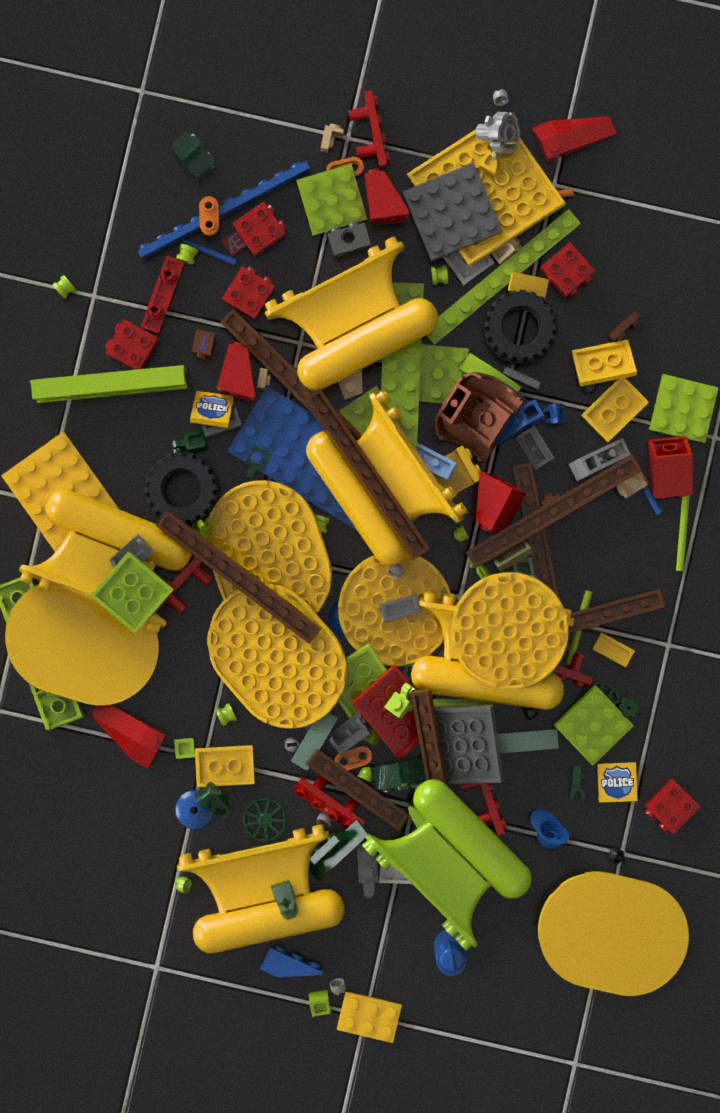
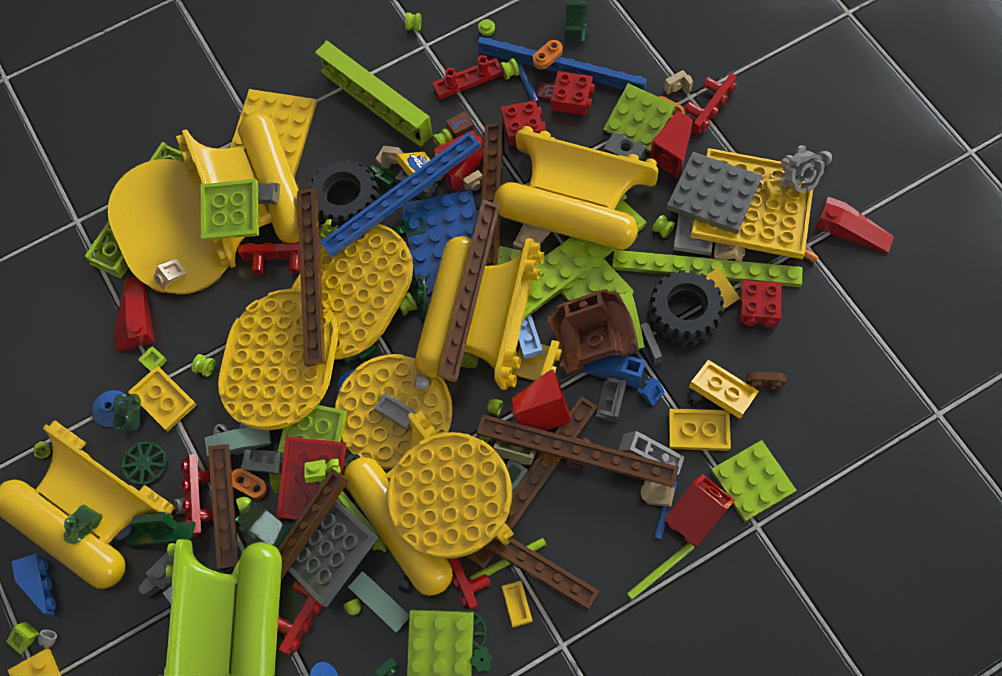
camera: 55 degrees right, 20 degrees down
(126, 233) = (486, 27): none -> lime plate
(127, 678) = (169, 273): none -> tan bracket
(131, 345) = (415, 85): red brick -> none
(176, 422) = (387, 156): none -> tan bracket
(202, 367) = (442, 138): none -> lime wheel
(233, 449) = (400, 194): none -> blue plate
(327, 508) = (421, 296): none -> dark green wheel
(511, 761) = (353, 607): none -> lime hinge

